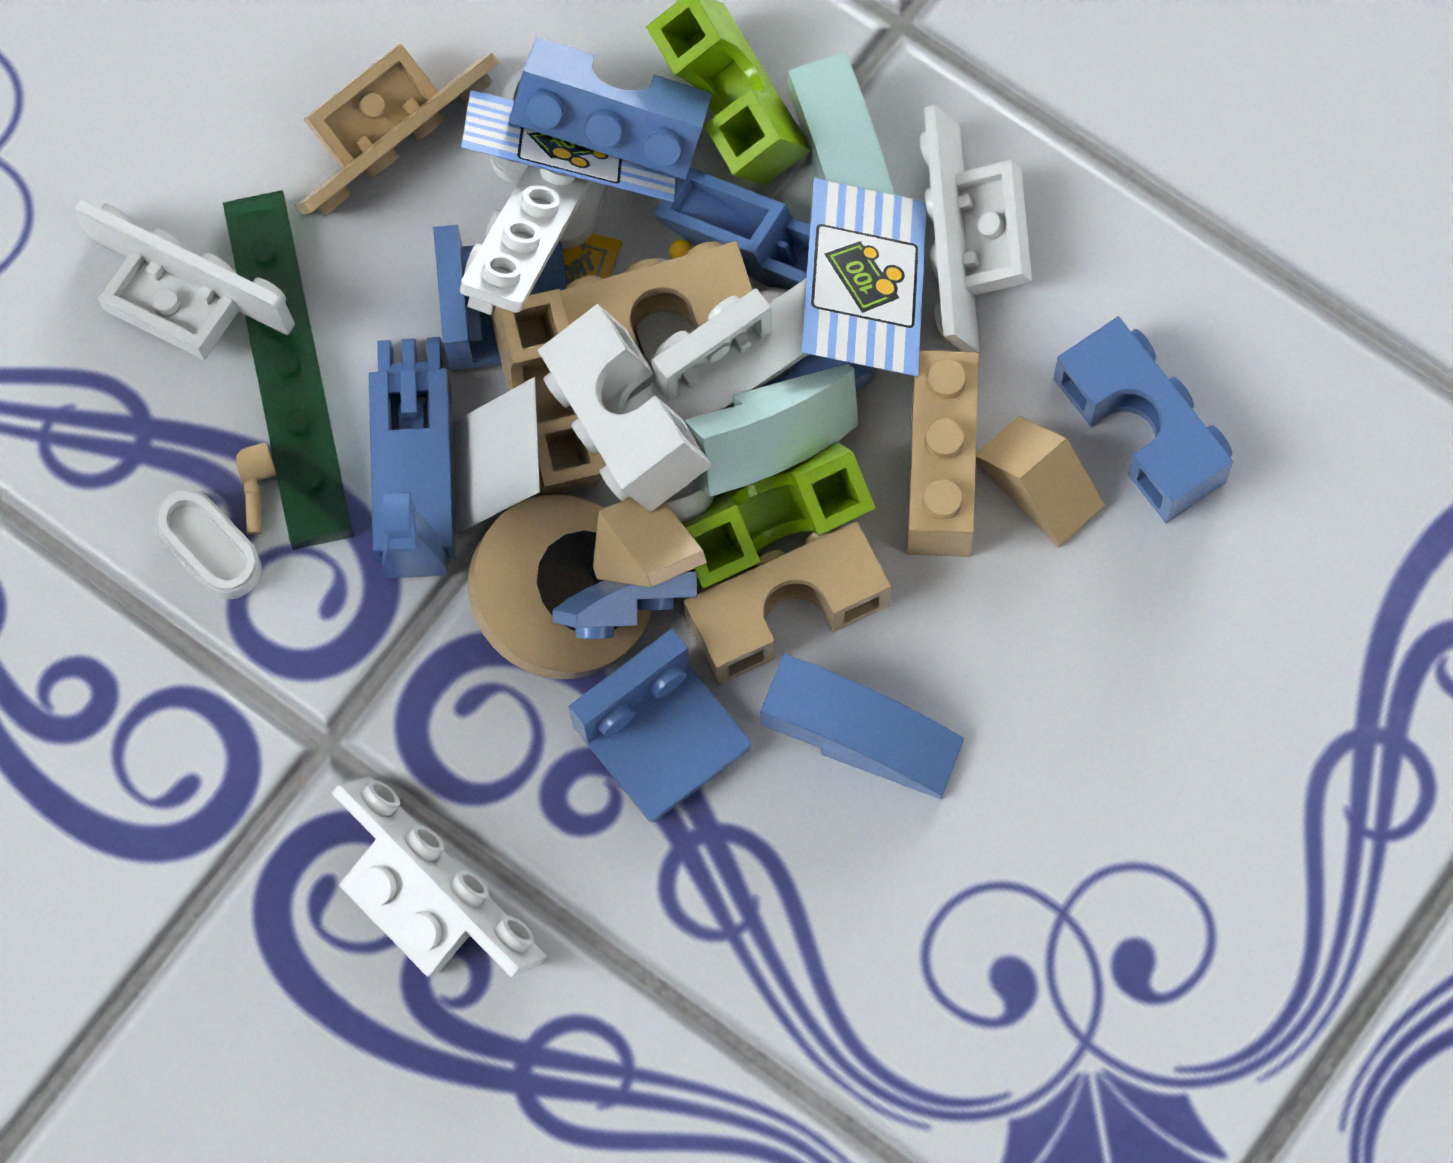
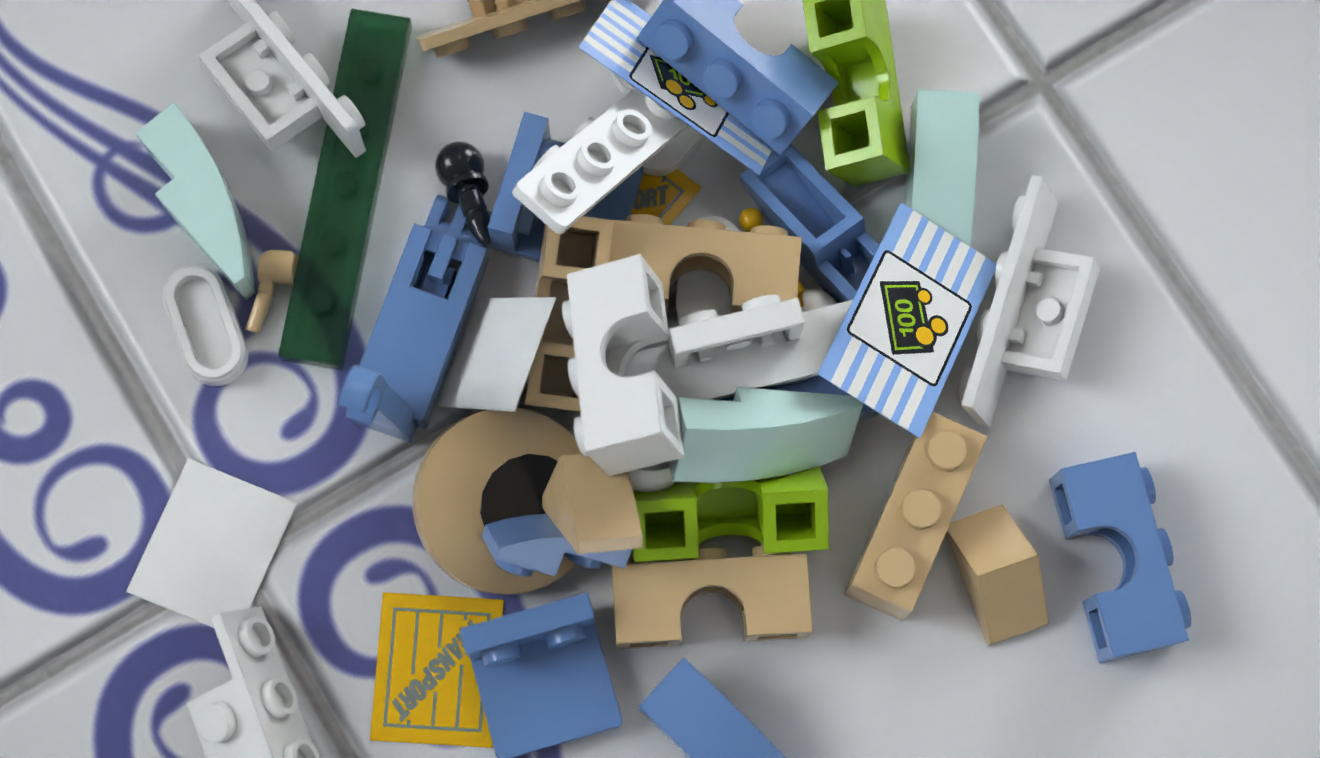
camera: 15 degrees right, 5 degrees up
(153, 426) = (199, 196): none -> light aqua slope
(298, 740) = (211, 544): none -> white sticker
(391, 310) = (461, 171): none -> black bar
(551, 775) = (422, 672): none -> yellow sticker

